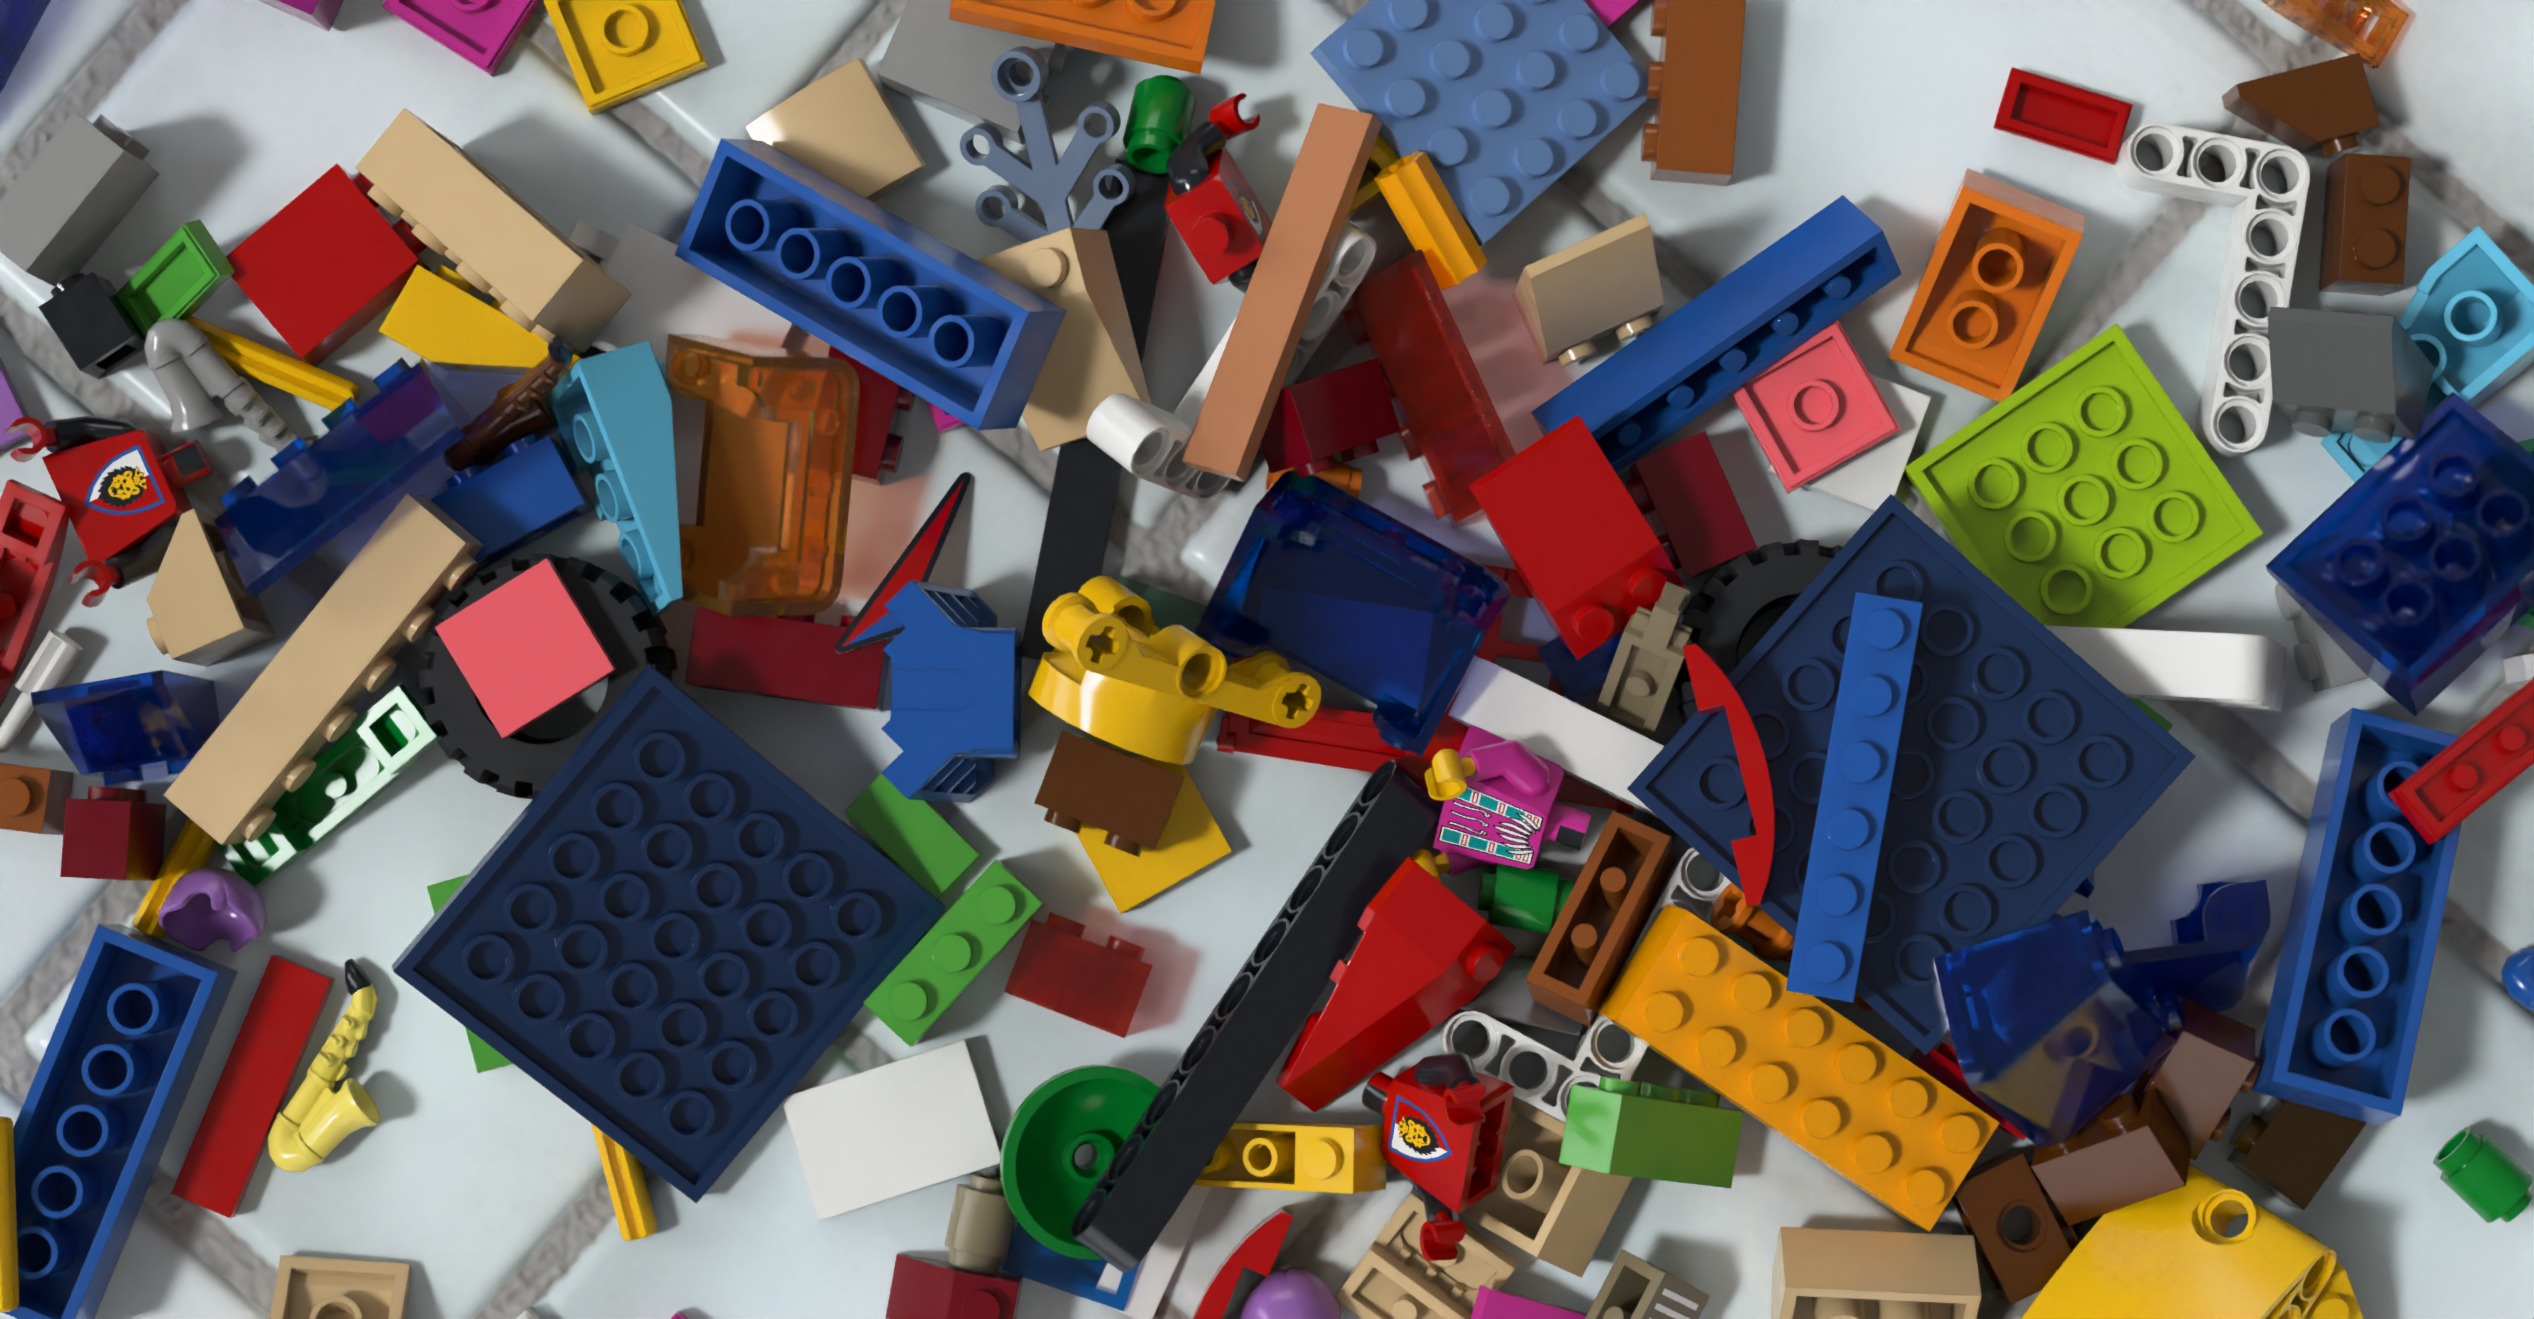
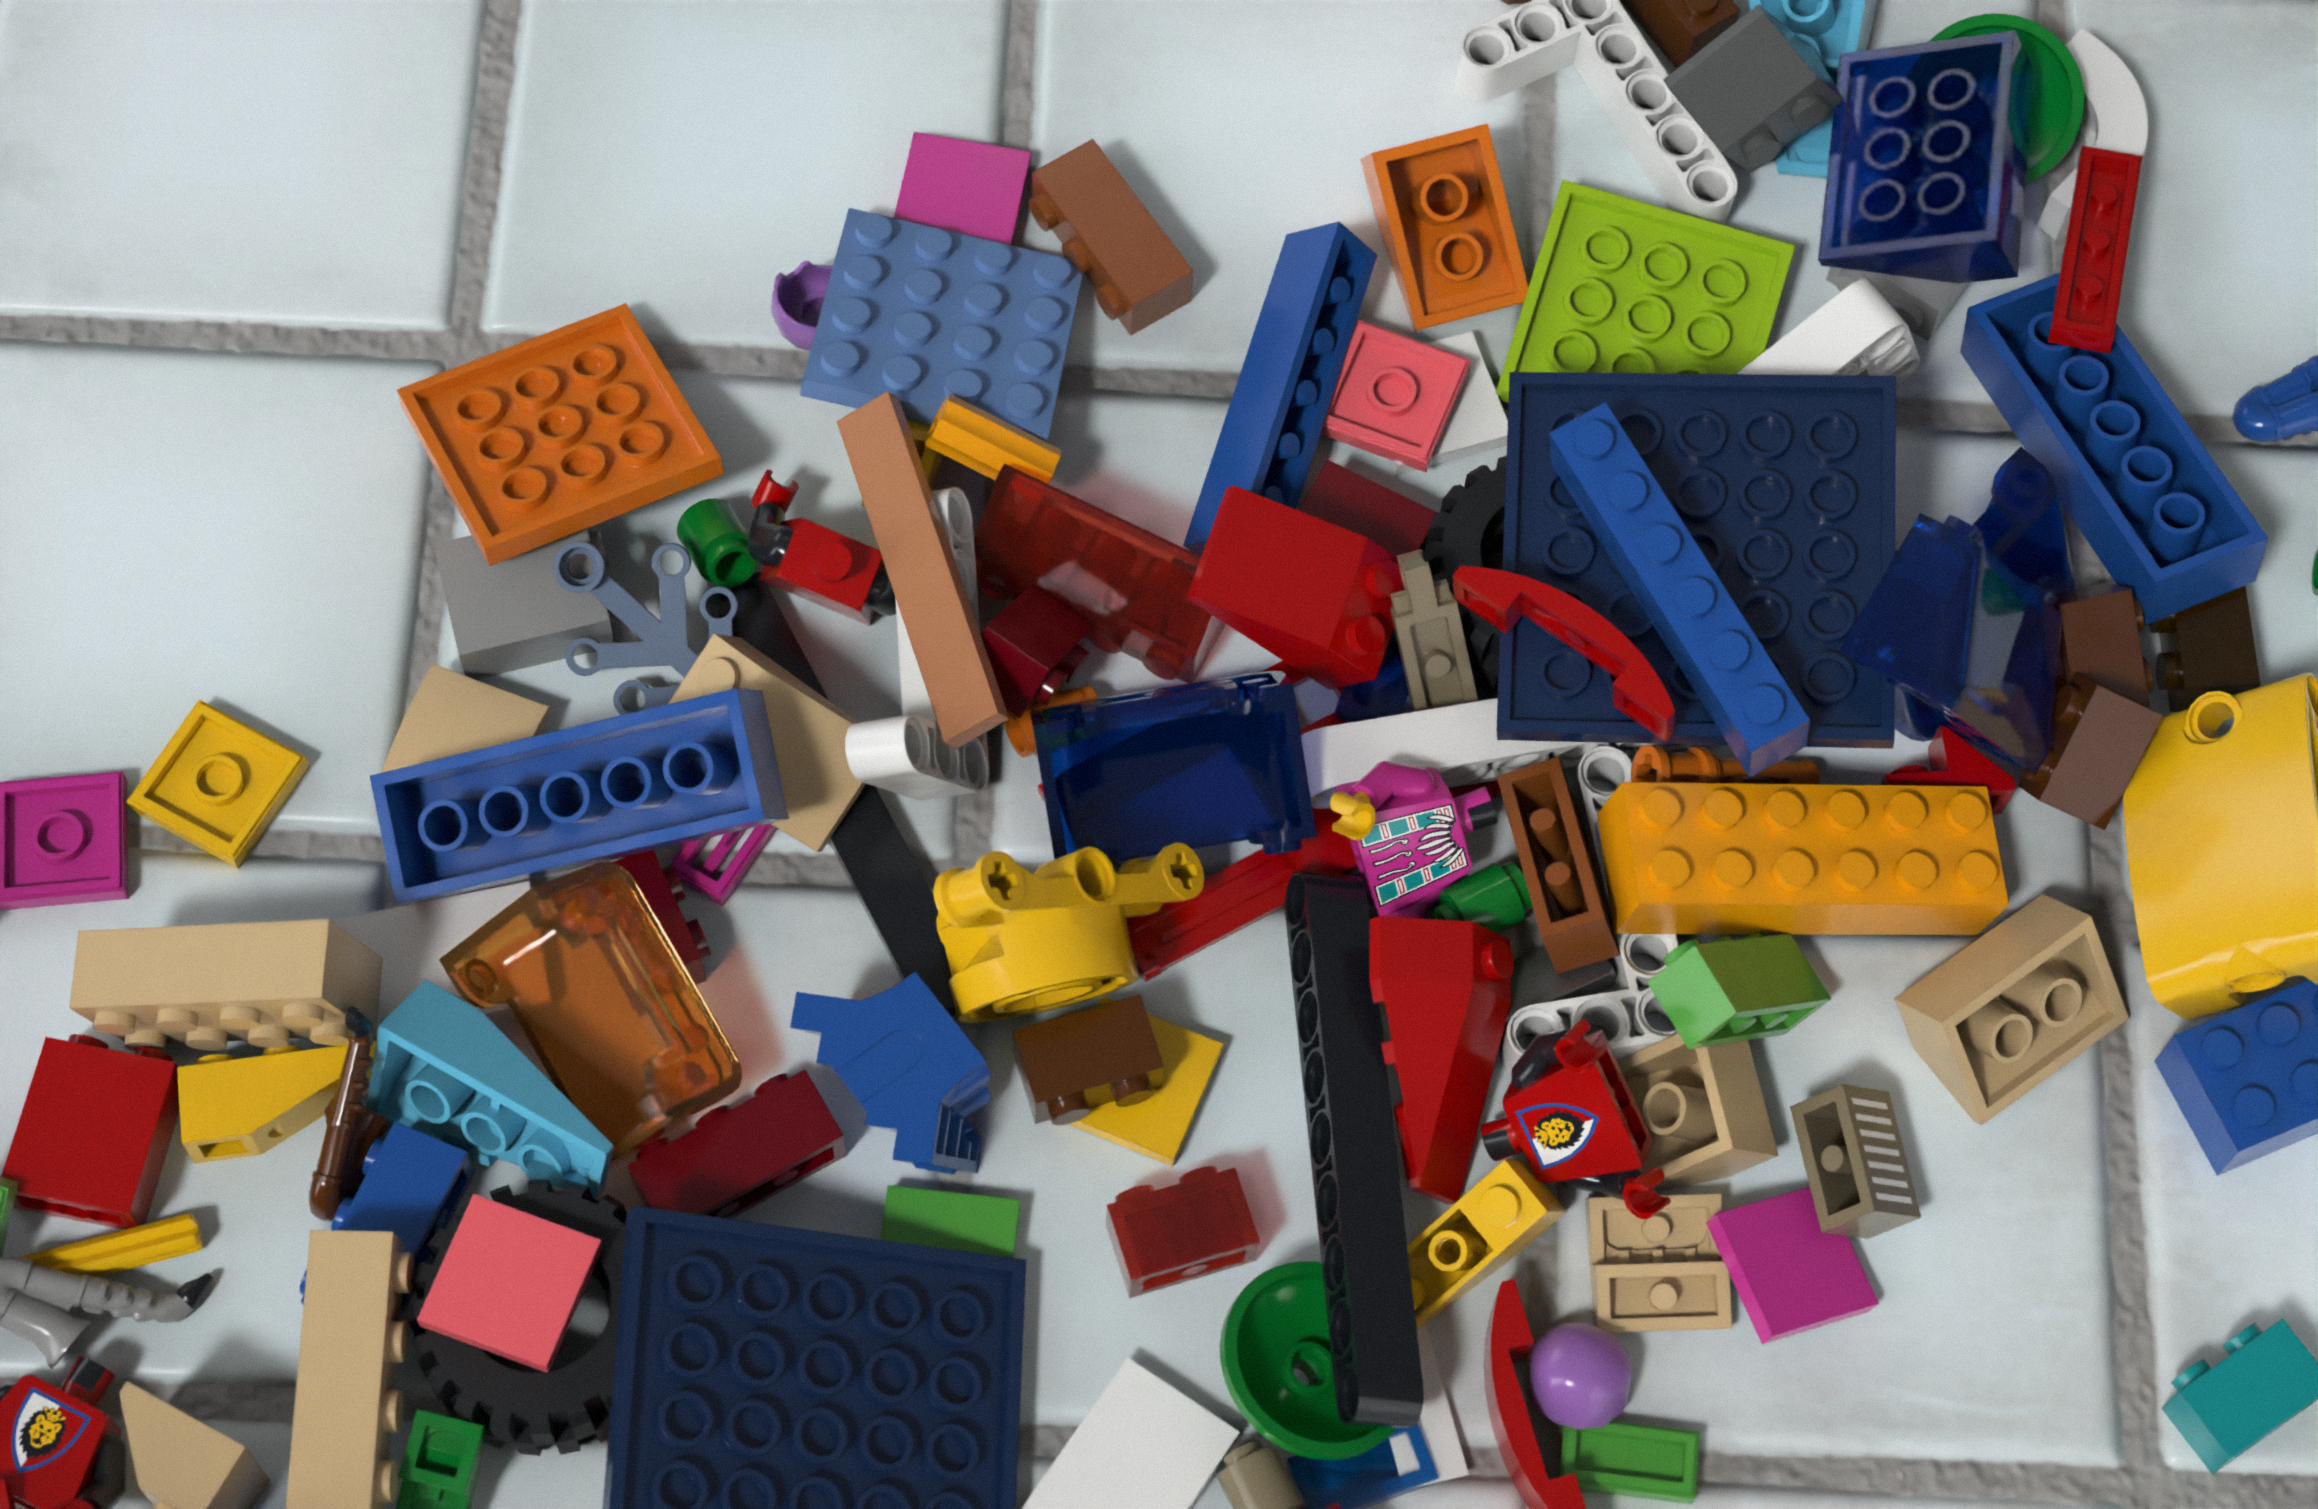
camera: 40 degrees left, 20 degrees down
(338, 474) = (234, 1272): clear blue slope -> none
(915, 563) = (789, 1050): sticker -> none
(954, 953) = (1063, 1288): bright green brick -> none
(1591, 292) = (1156, 418): tan slope -> none
(1983, 1200) = (2099, 856): reddish brown brick -> none
(2062, 116) = (1397, 82): red tile -> none

